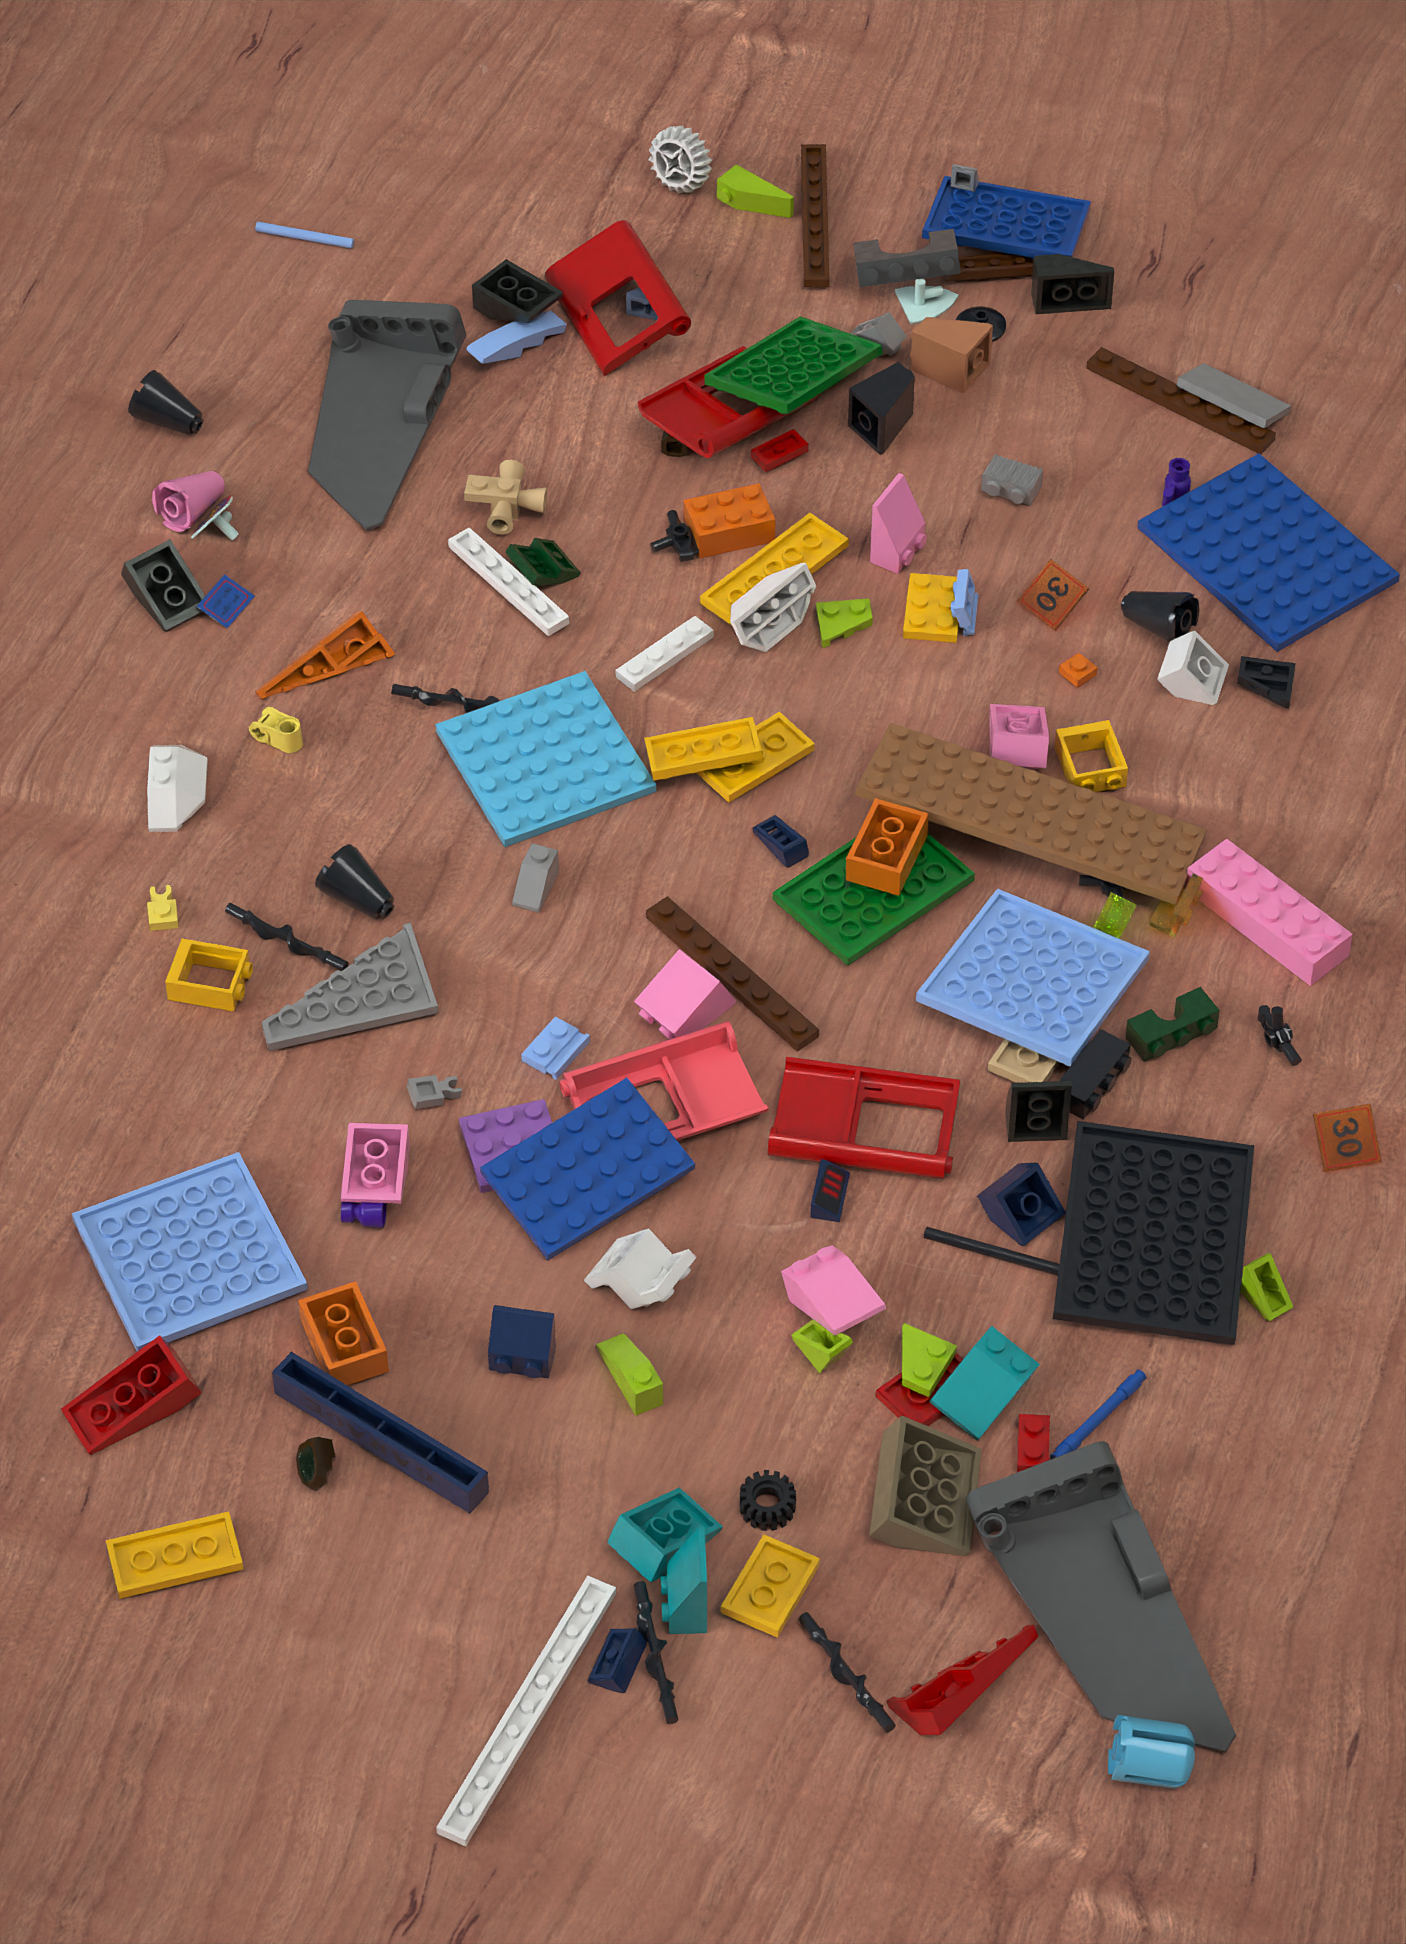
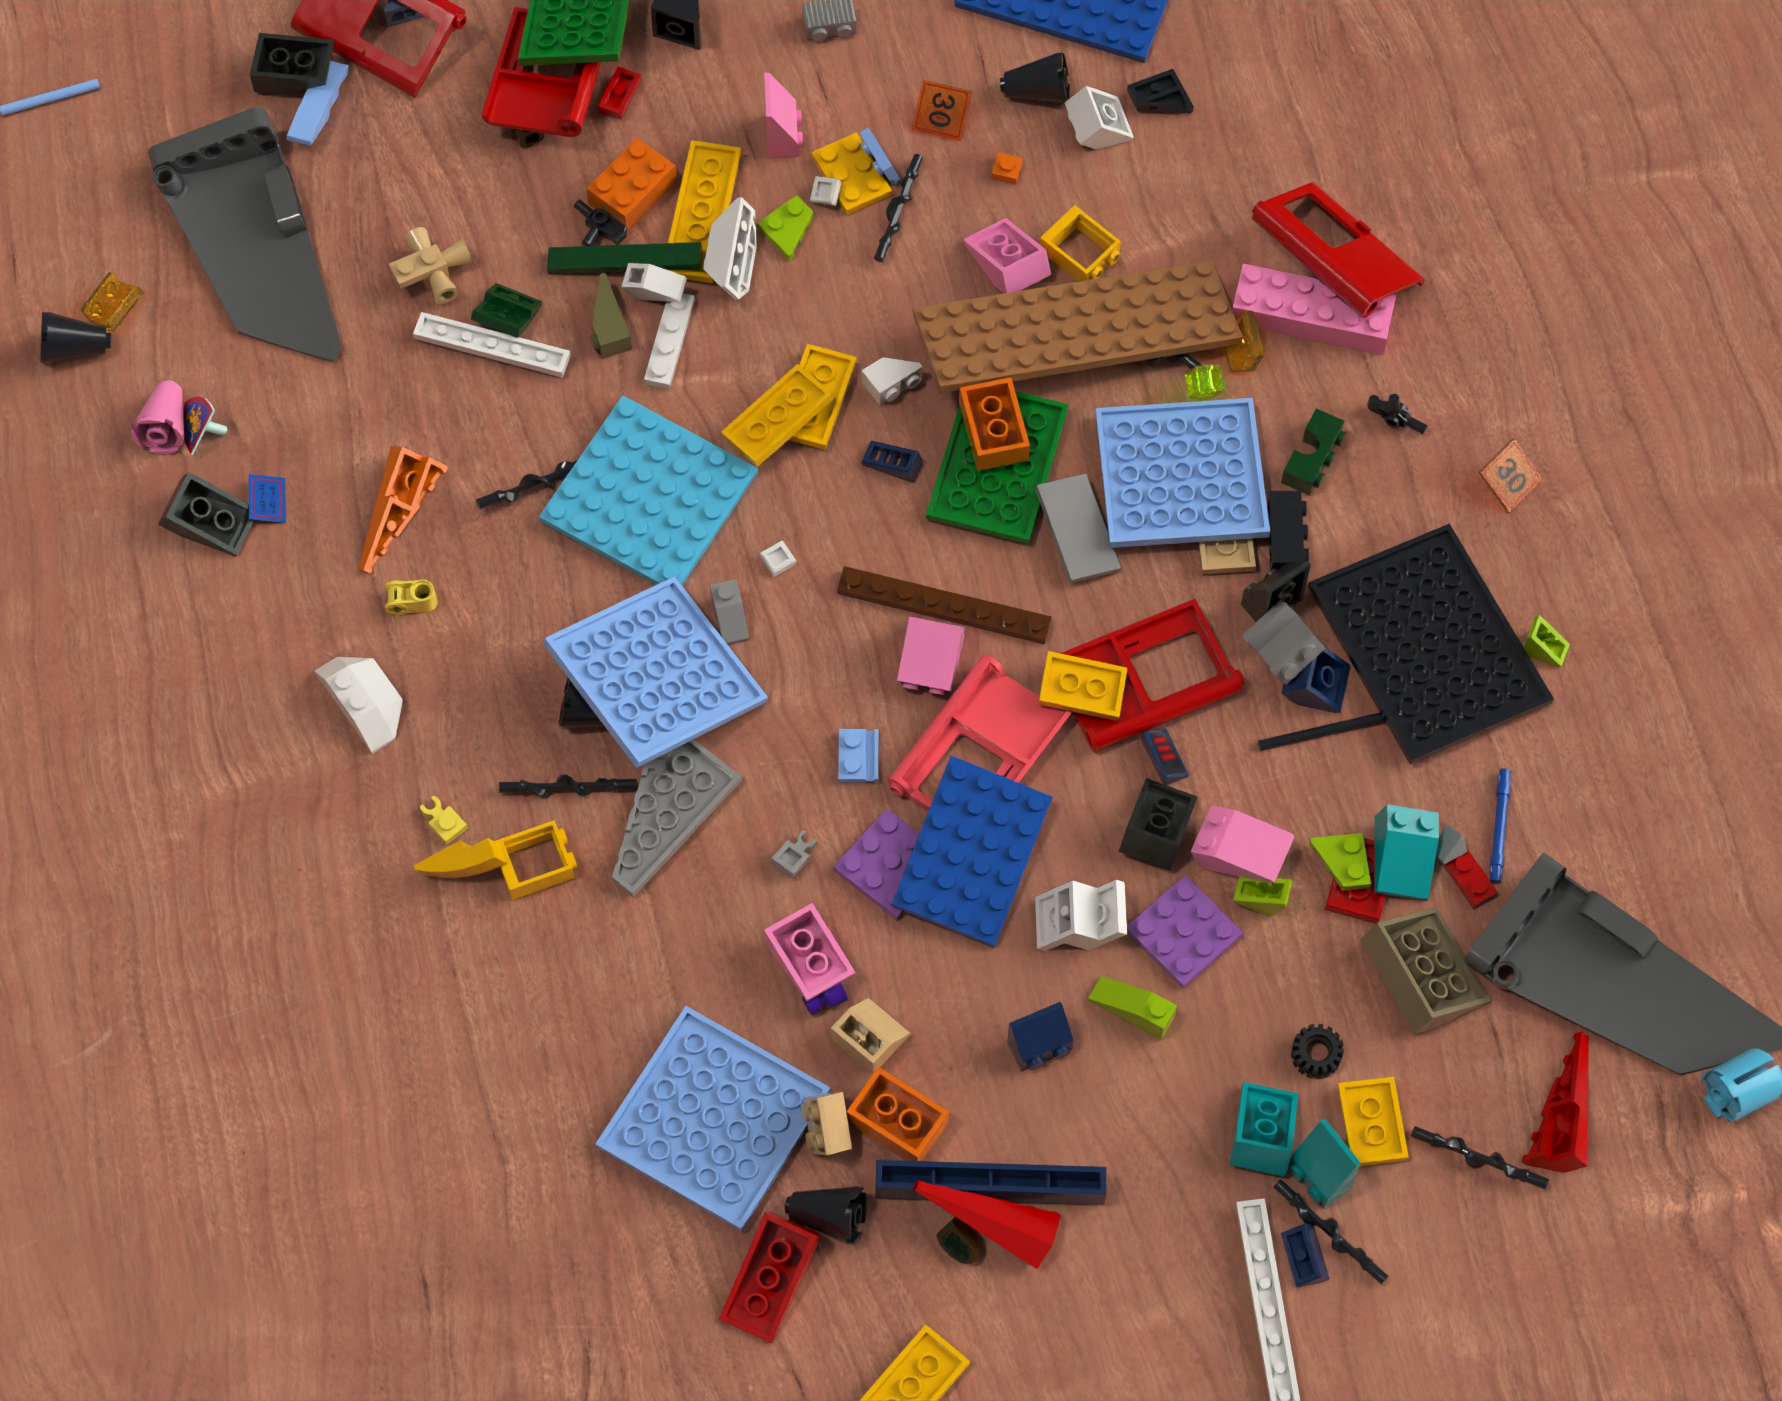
camera: 35 degrees left, 15 degrees up
(146, 938) = (463, 860): none -> yellow slope
(222, 398) = (111, 302): none -> clear yellow bracket
(225, 1377) = (830, 1211): none -> black cone
(275, 1302) = (826, 1123): none -> tan slope
(367, 1475) = (1016, 1227): none -> red wedge
(376, 1258) = (868, 1034): none -> tan slope
(428, 882) = (655, 671): none -> light blue plate
(615, 863) = (778, 558): none -> white tile
(620, 611) = (608, 325): none -> olive slope
(675, 570) = (616, 257): none -> dark green tile
(681, 598) = (653, 283): none -> white slope
(728, 1340) = (1184, 932): none -> medium lavender plate
(773, 1239) = (1158, 824): none -> pearl dark grey slope
(796, 1092) = (1082, 686): none -> yellow plate
(831, 774) = (890, 377): none -> white slope
(896, 606) = (825, 191): none -> white tile
(899, 971) = (1077, 528): none -> light grey tile
(949, 649) = (895, 207): none -> black piece
(1010, 1150) = (1283, 641): none -> light grey panel
(1032, 1403) = (1450, 845): none -> light grey slope
(1318, 888) = (1356, 271): none -> red piece

